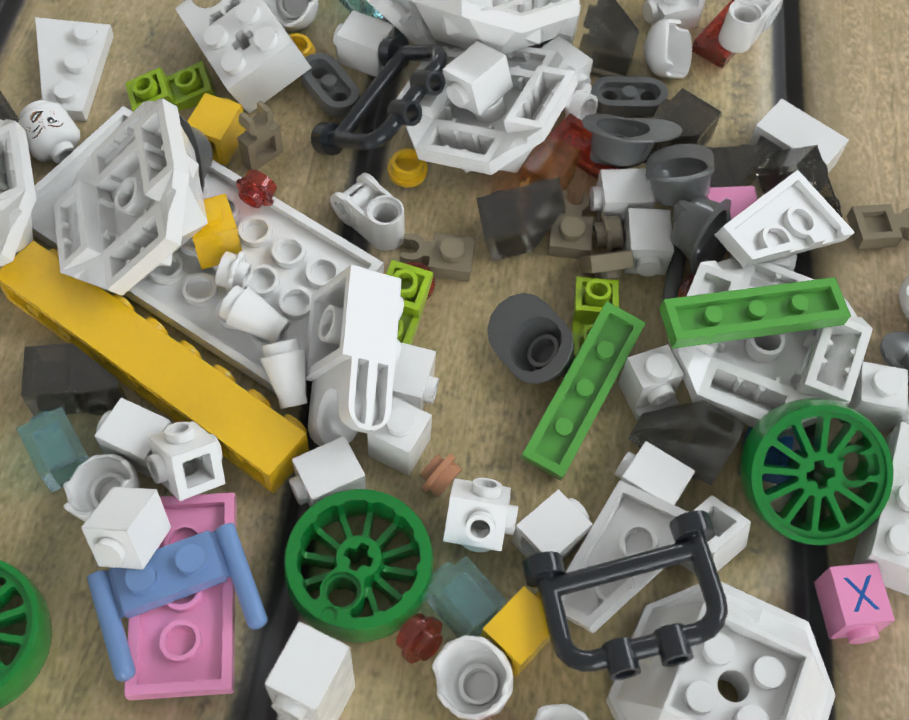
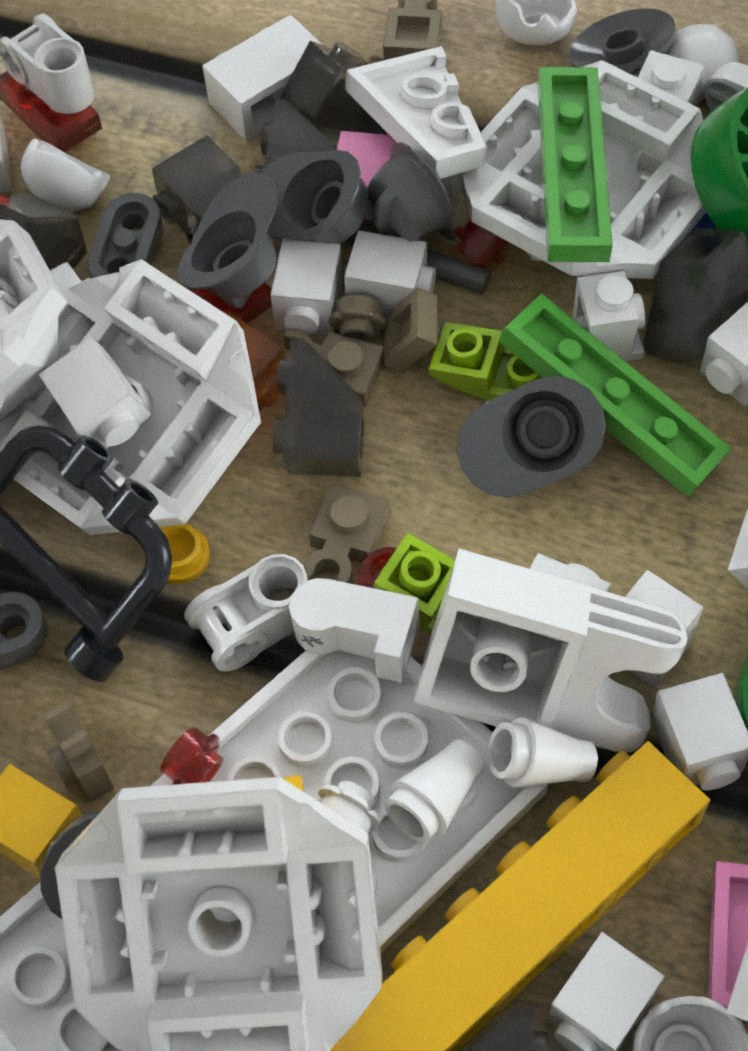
camera: 70 degrees left, 0 degrees up
(186, 460) = (674, 912): white brick -> none
(362, 243) = (358, 621): none -> white leg
(439, 474) = (714, 588): nougat plate -> none

